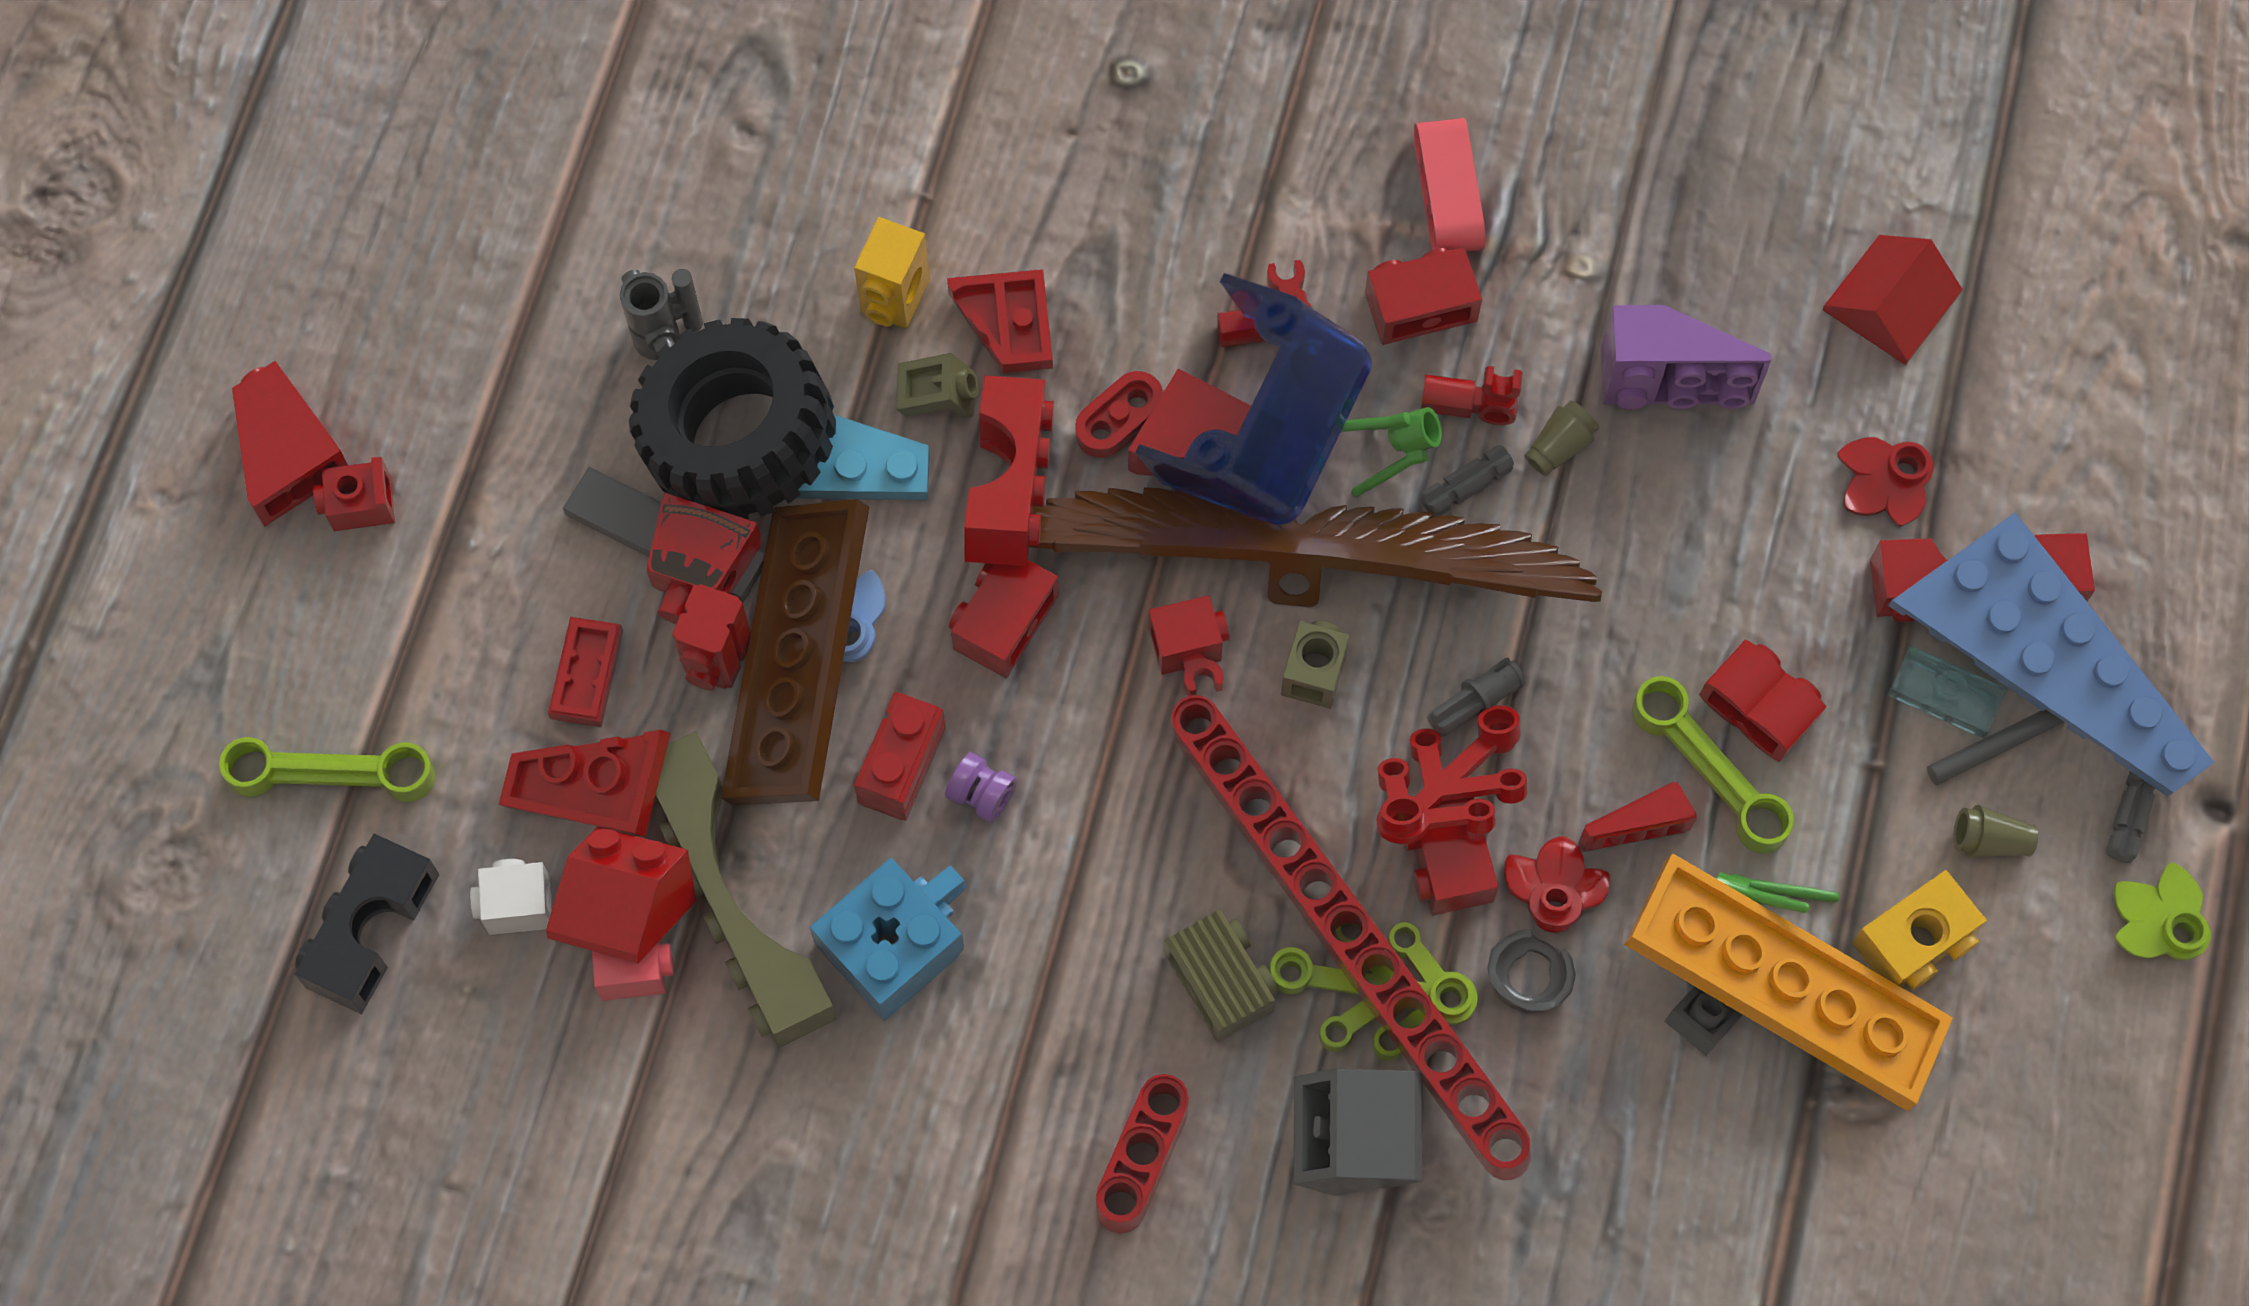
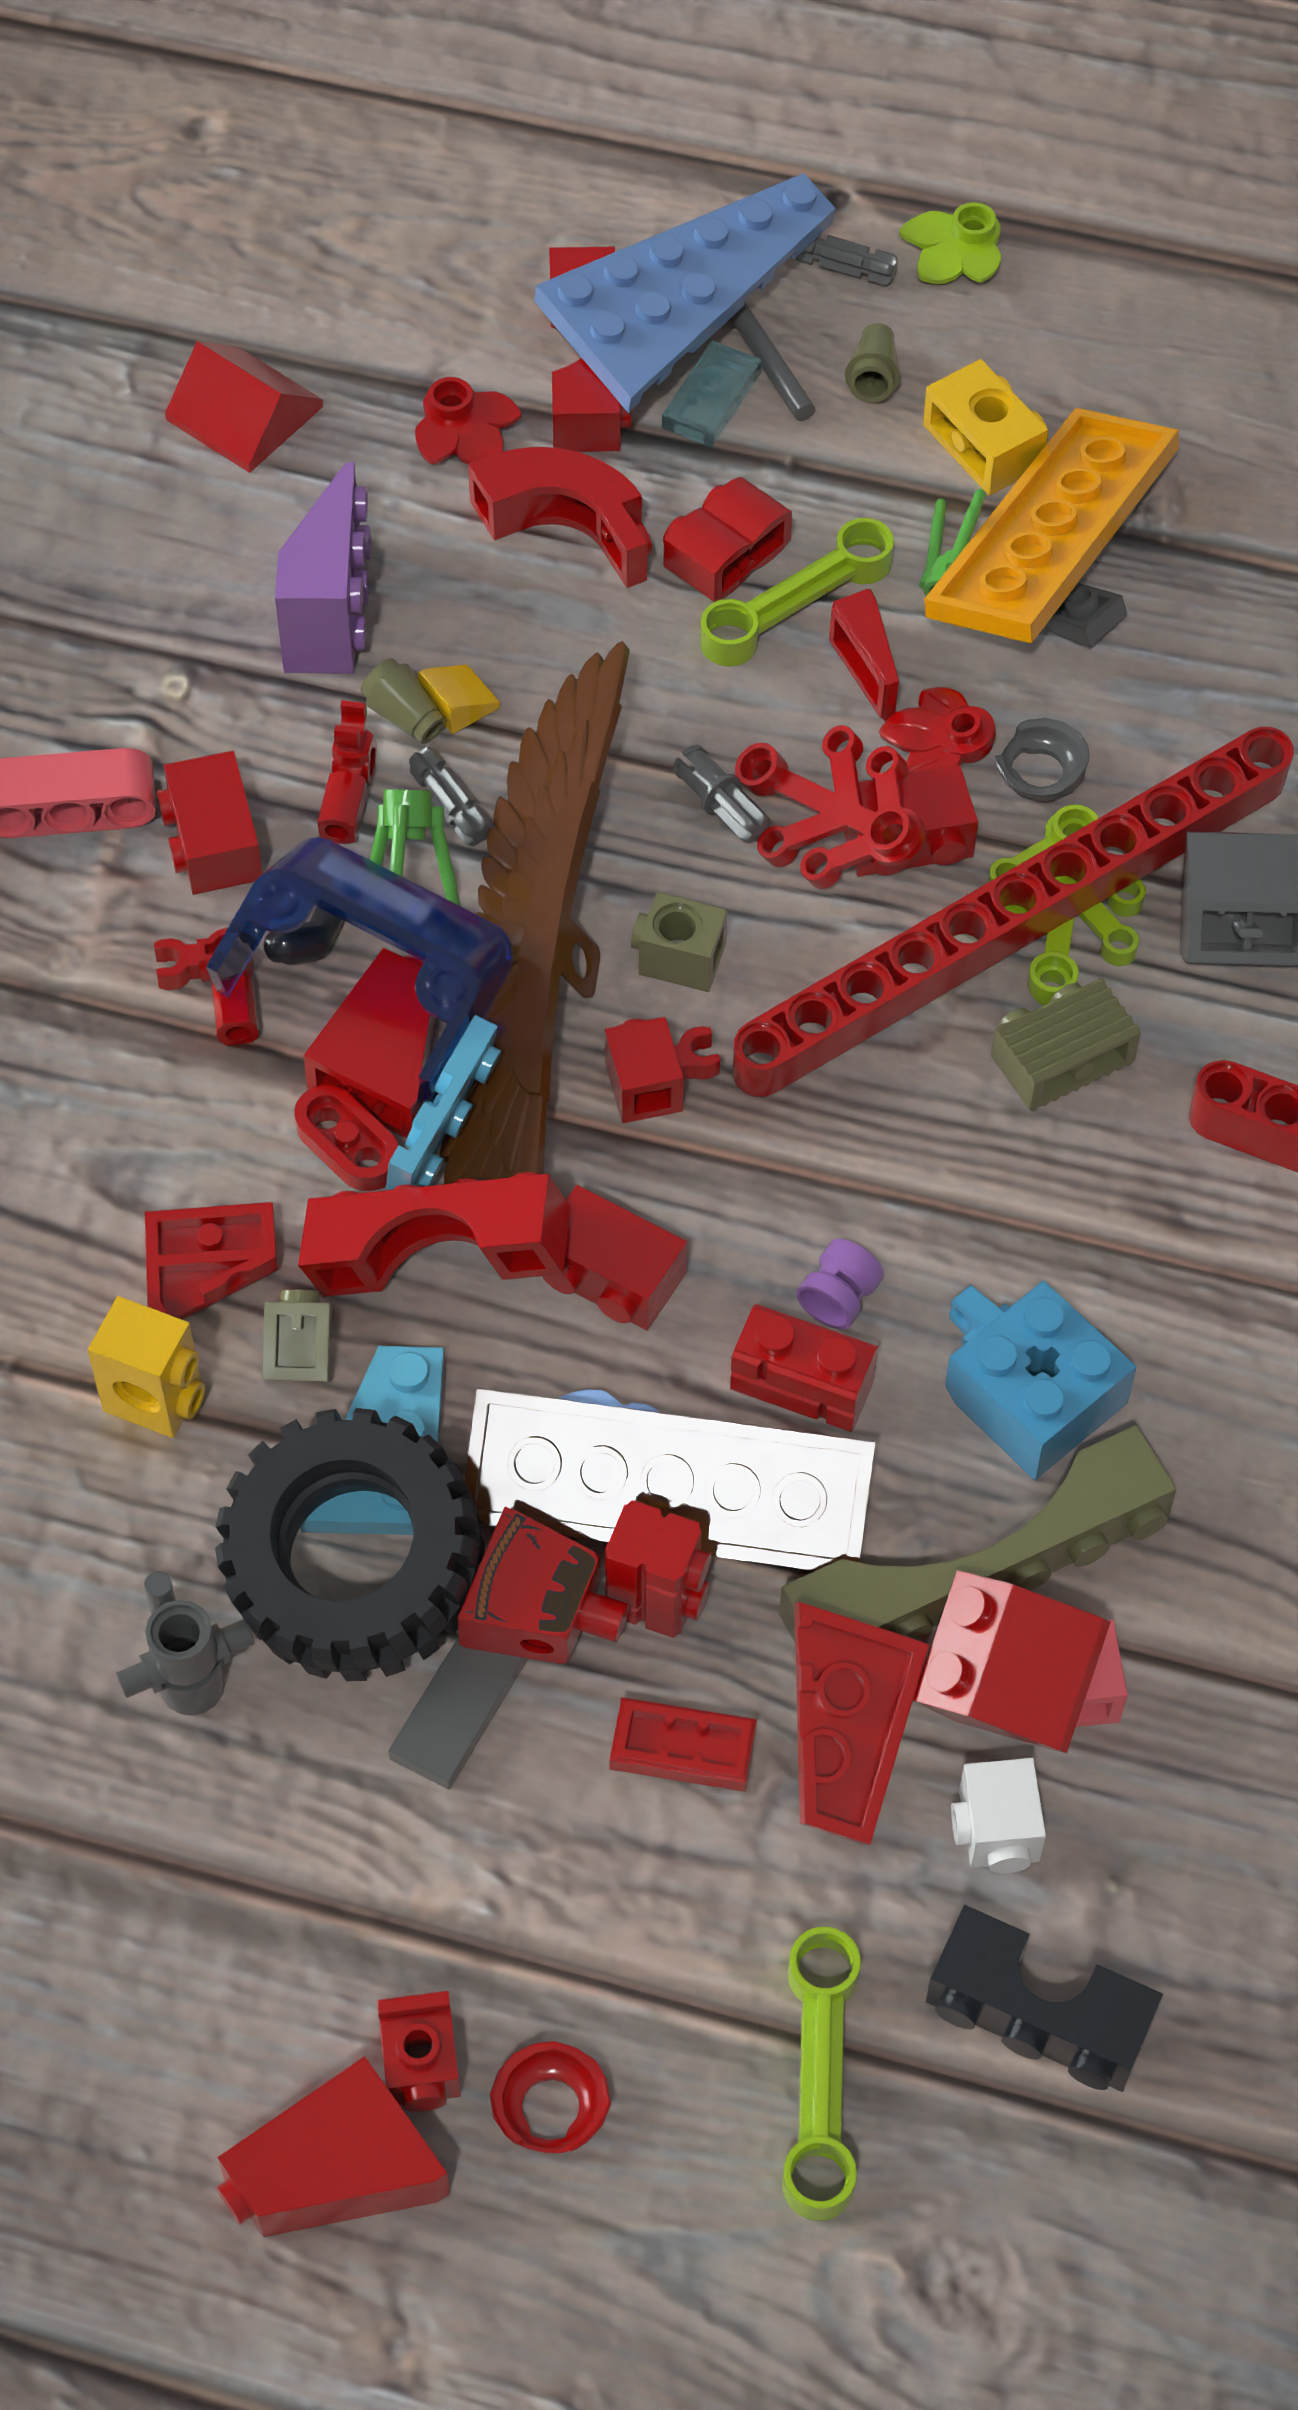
camera: 90 degrees left, 10 degrees down
(313, 560) = (545, 2063): none -> red piece
(1096, 460) = (471, 1061): none -> medium azure wing
(1576, 482) = (458, 695): none -> yellow slope
(1810, 541) = (564, 489): none -> red arch

